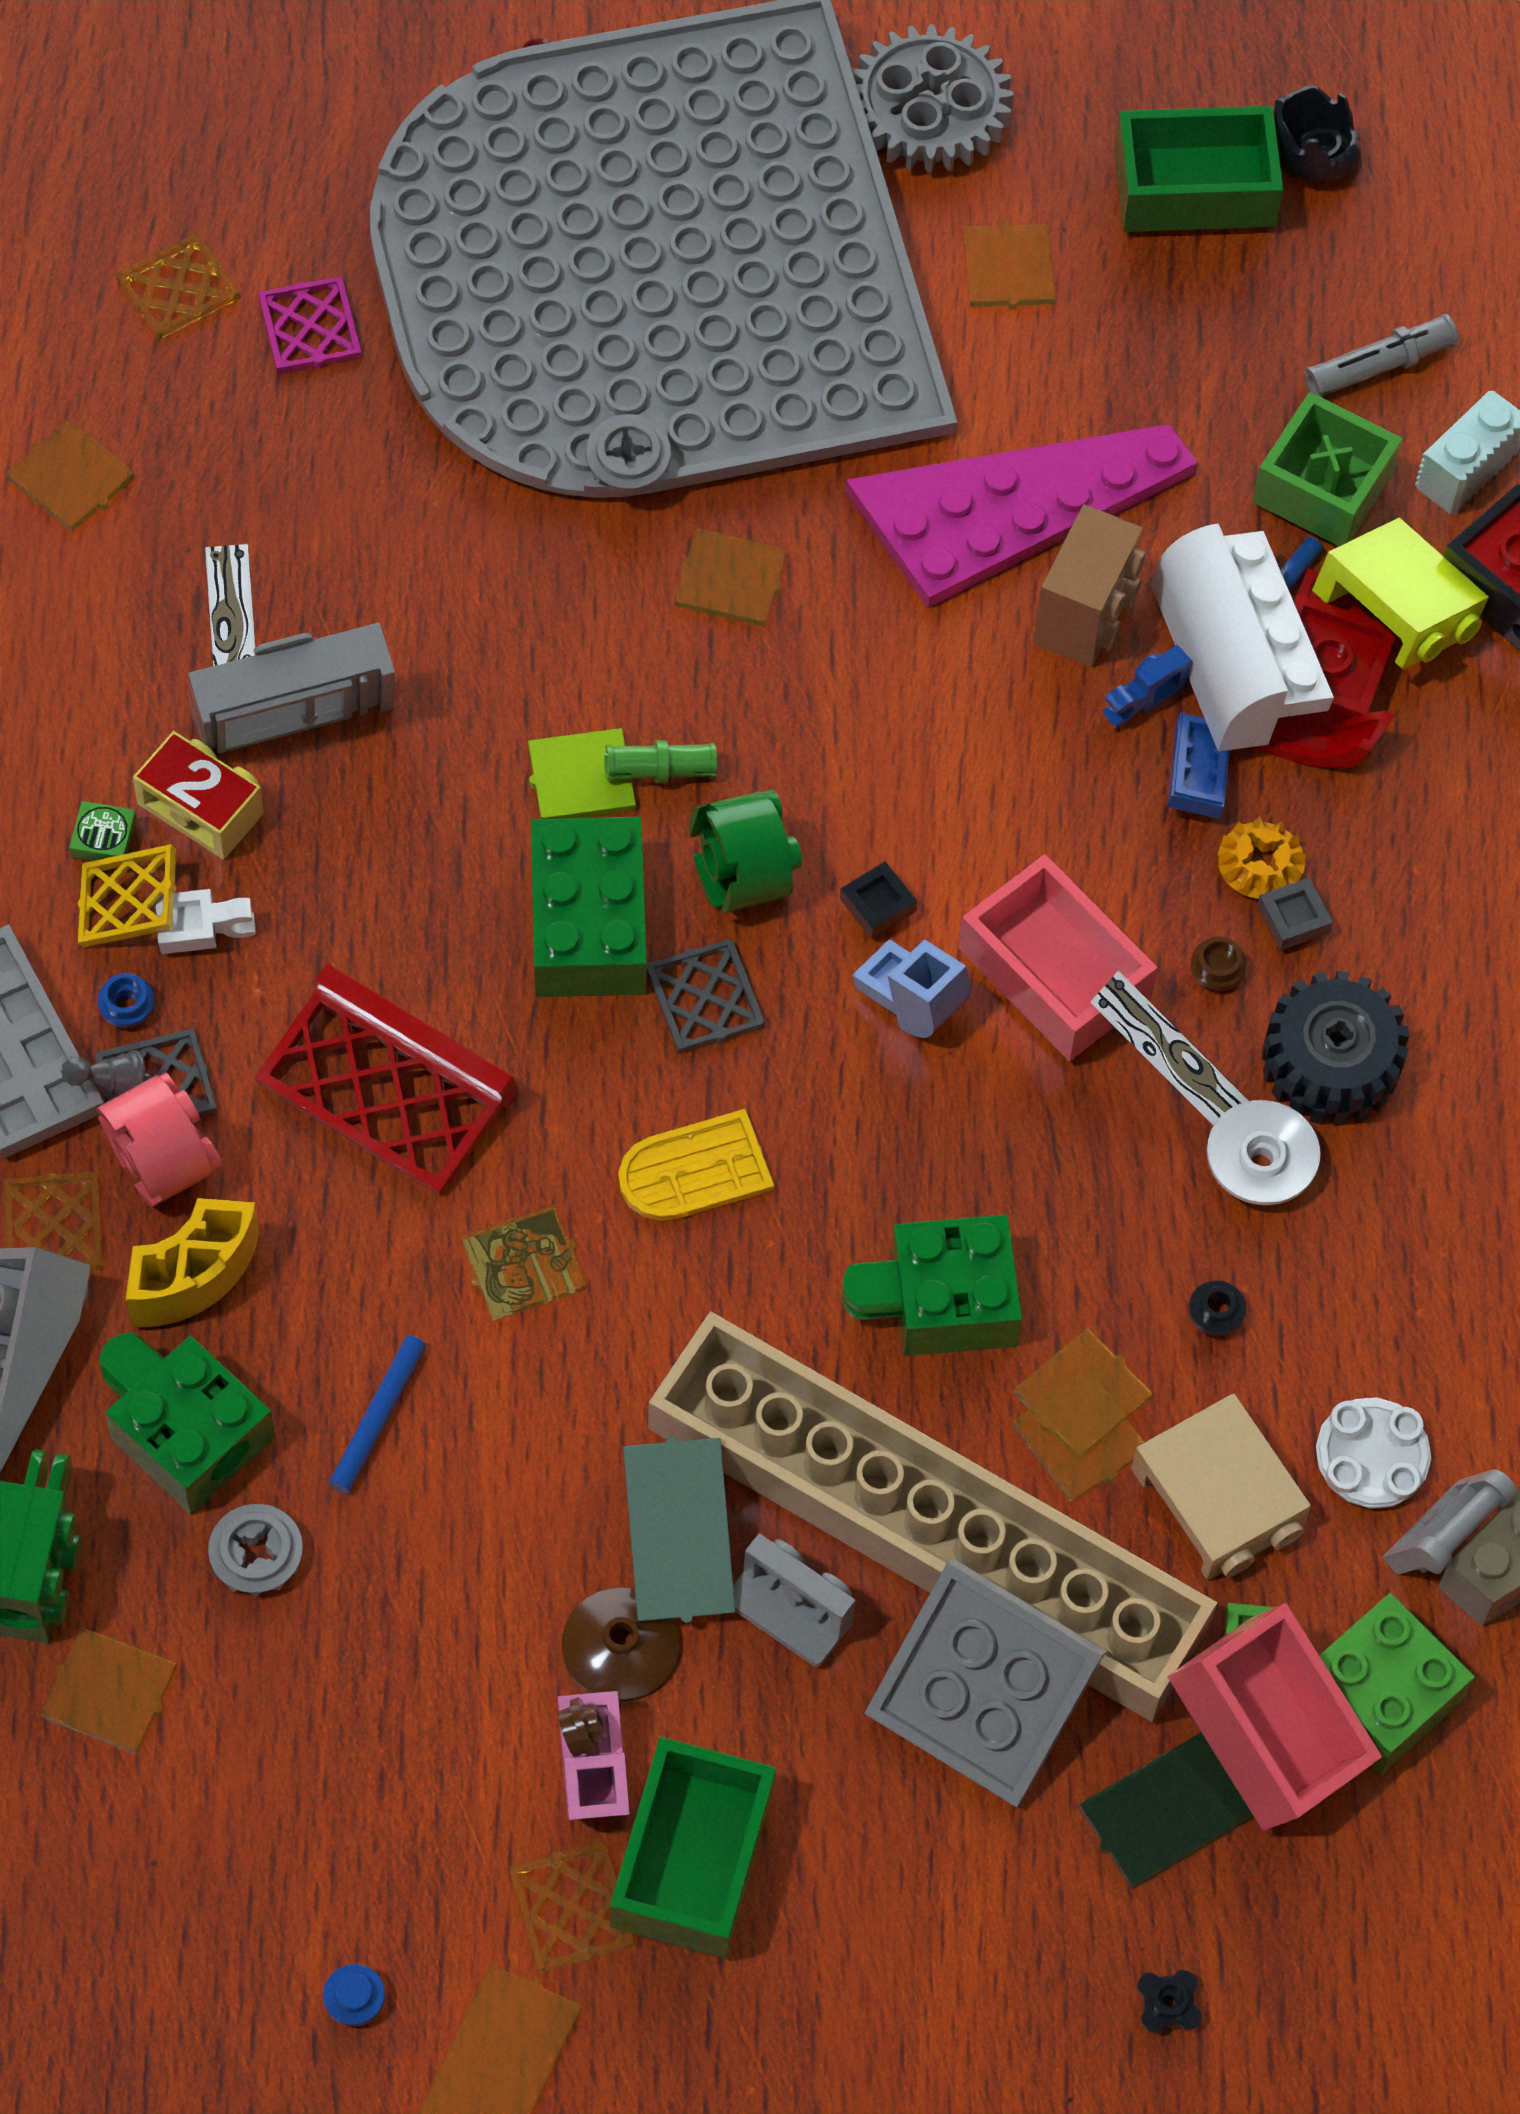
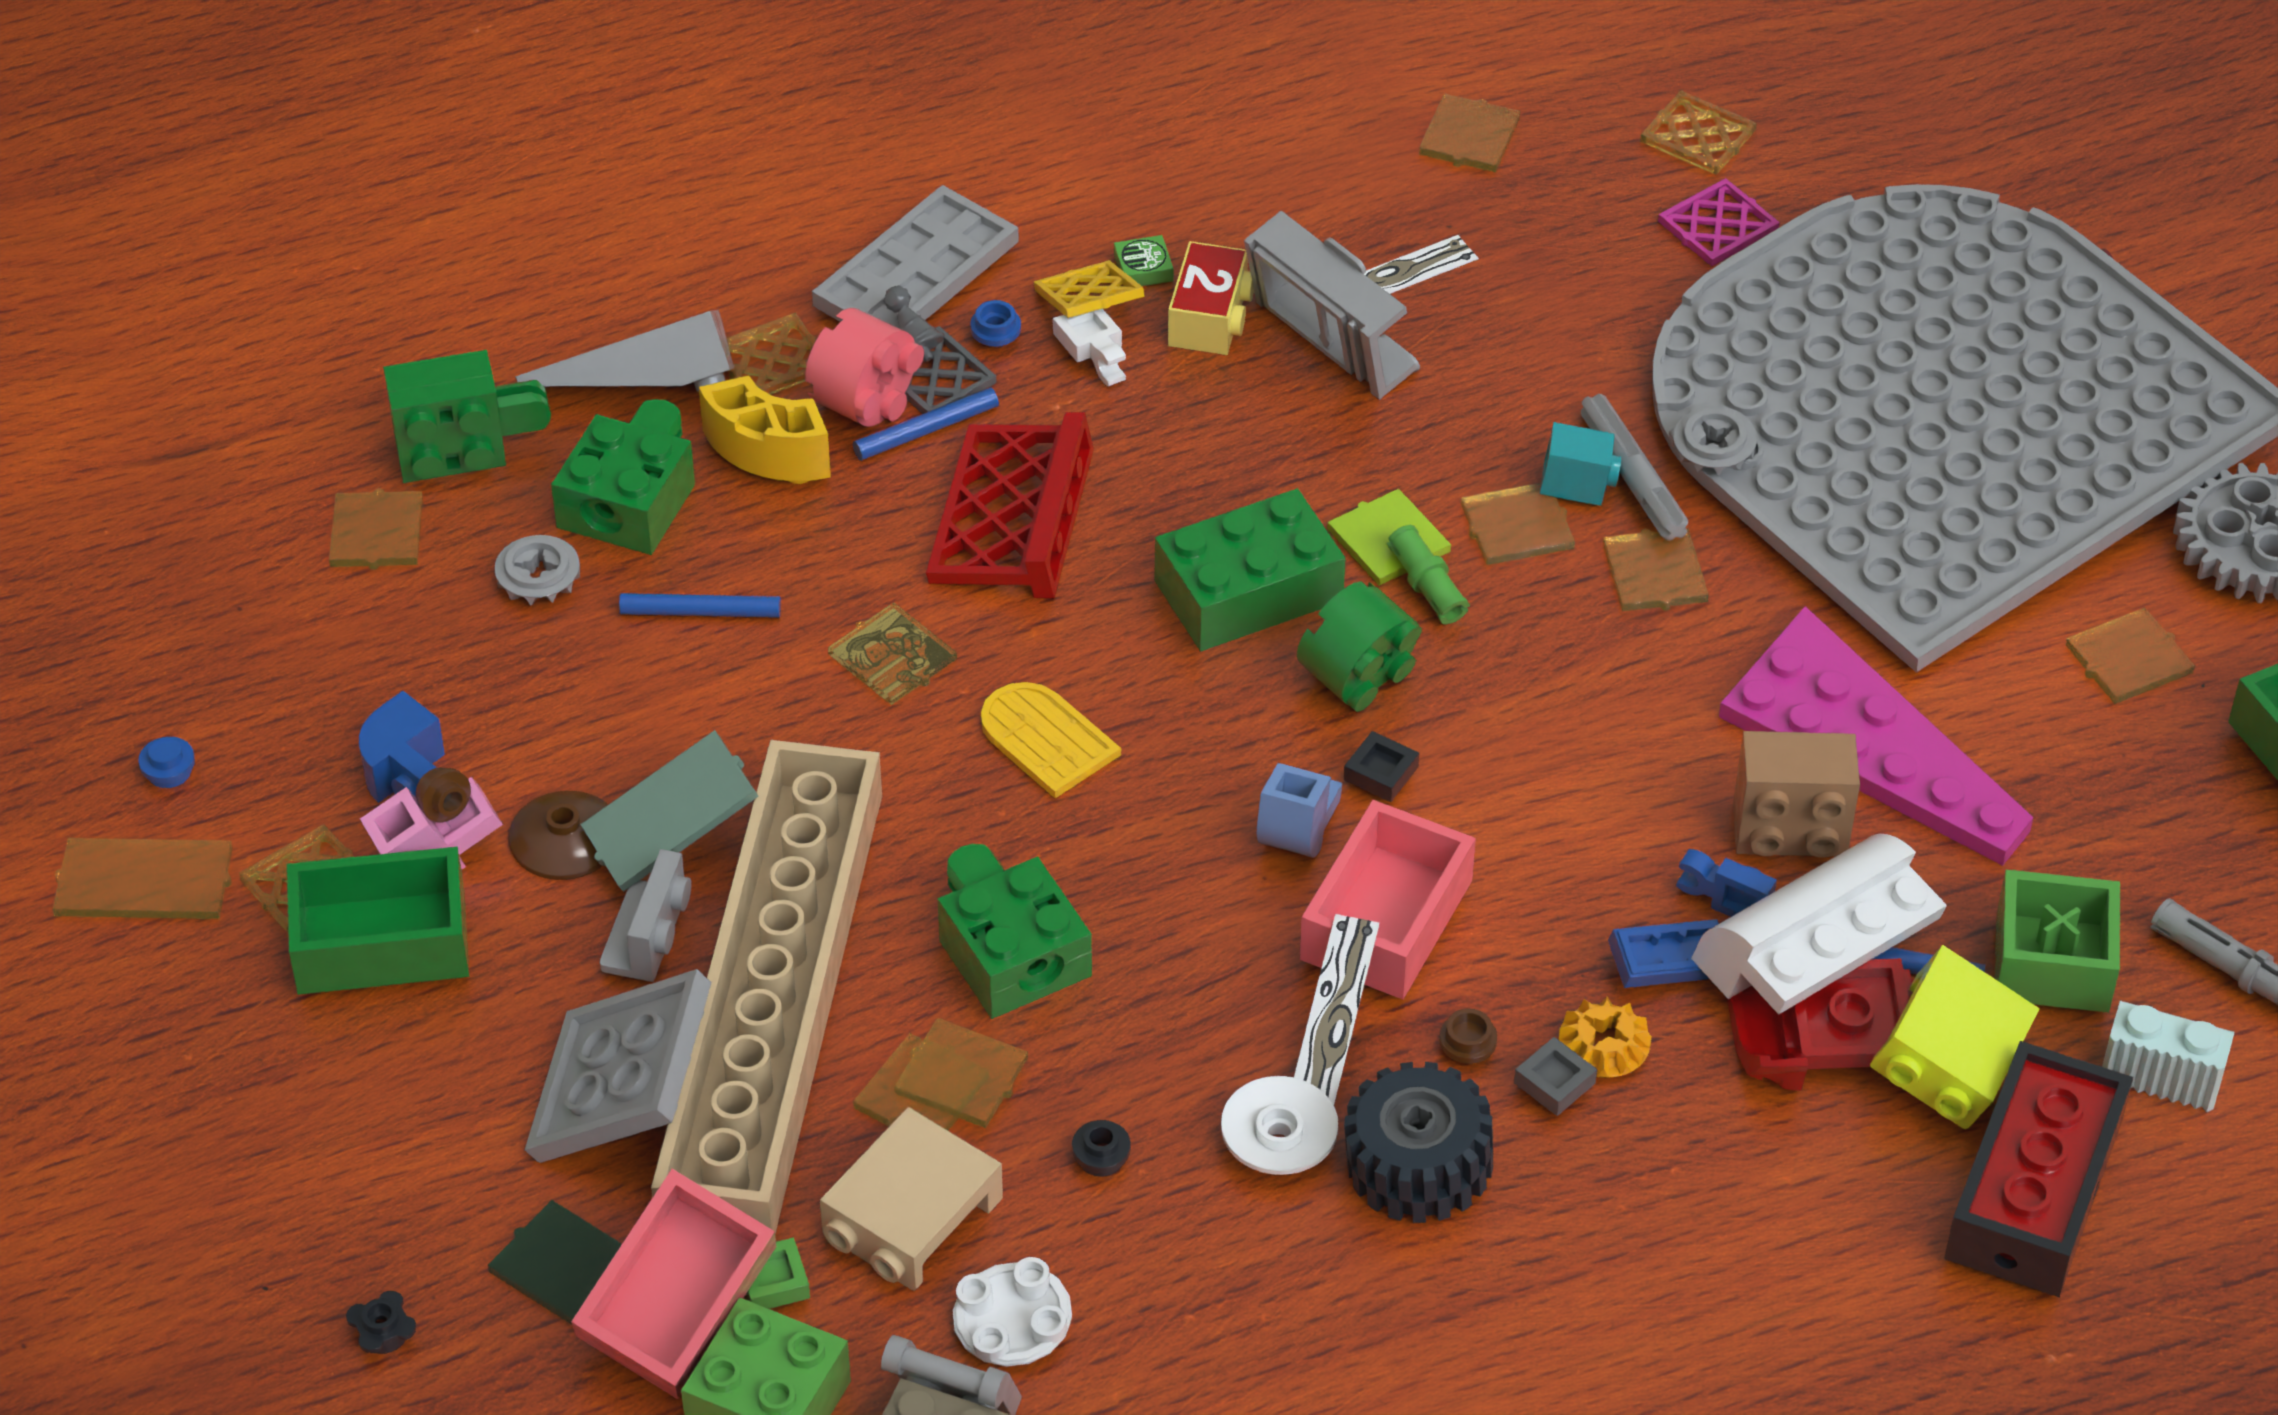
camera: 70 degrees right, 15 degrees down
(228, 1117) = (925, 424): none -> blue bar
(456, 1770) = (399, 746): none -> blue brick
(589, 578) = (1579, 464): none -> teal brick
(605, 535) = (1637, 469): none -> light grey axle
(617, 662) = (1517, 523): none -> clear yellow piece
(719, 1032) = (1199, 664): dark grey window -> none

